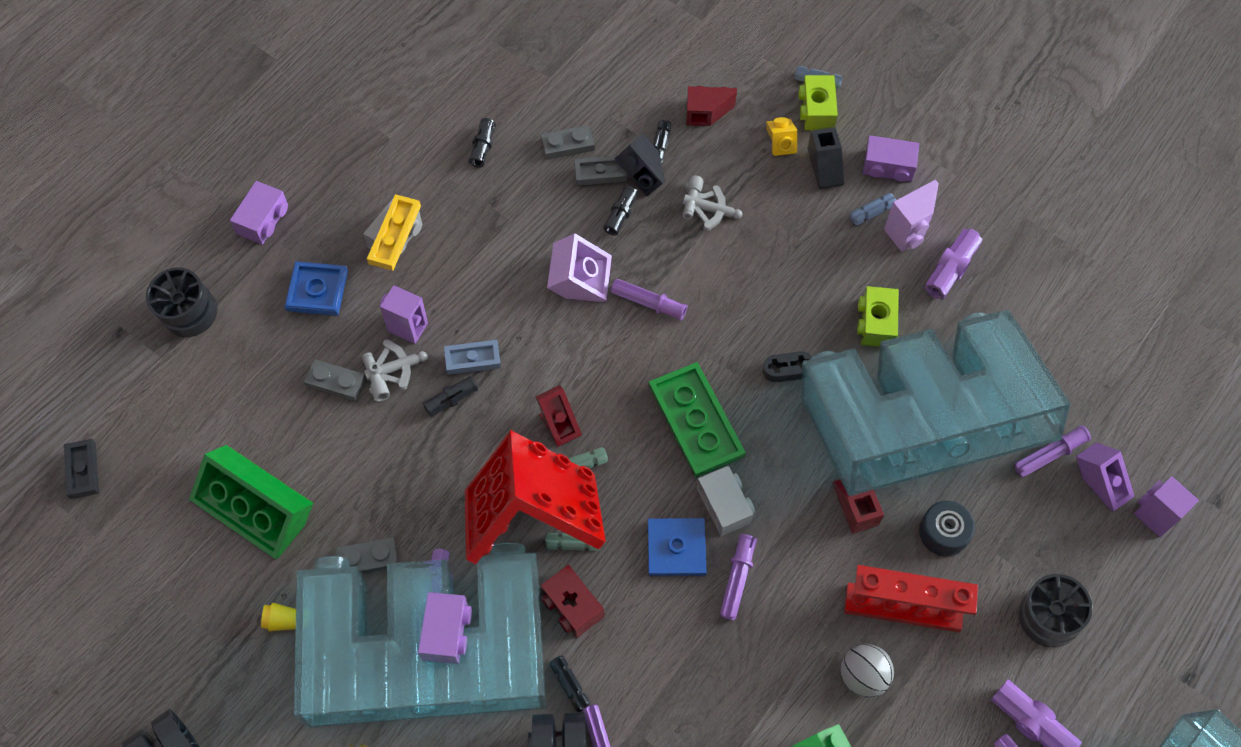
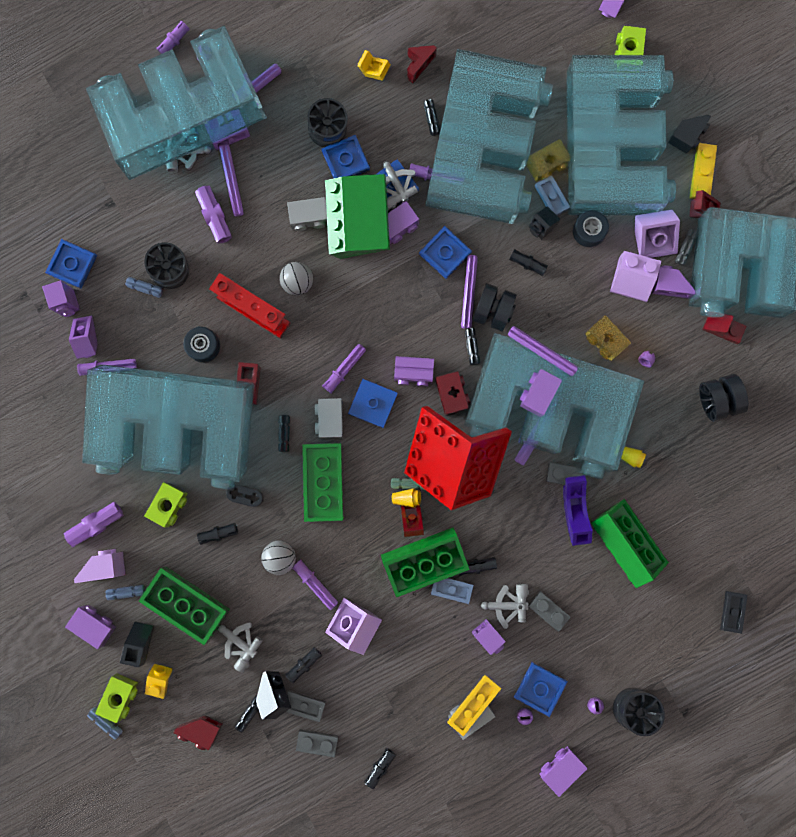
camera: 155 degrees left, 20 degrees up
(233, 299) = (591, 705): none -> medium lavender hinge
(326, 254) = (524, 712): none -> medium lavender hinge
(336, 508) = (576, 510): none -> dark purple arch
(462, 693) = (542, 351): none -> medium lavender axle
(520, 372) = (424, 562): none -> green slope
(576, 441) = (407, 498): none -> yellow cone
(639, 611) = (414, 370): none -> medium lavender brick
(708, 307) = (278, 557): none -> light grey piece
(777, 461) = (284, 432): none -> black axle
(795, 216) = (184, 605): none -> green brick
(798, 310) = (217, 533): none -> black pin
(1087, 575) = (144, 287): none -> sand blue axle
(1184, 566) = (71, 263): none -> blue plate

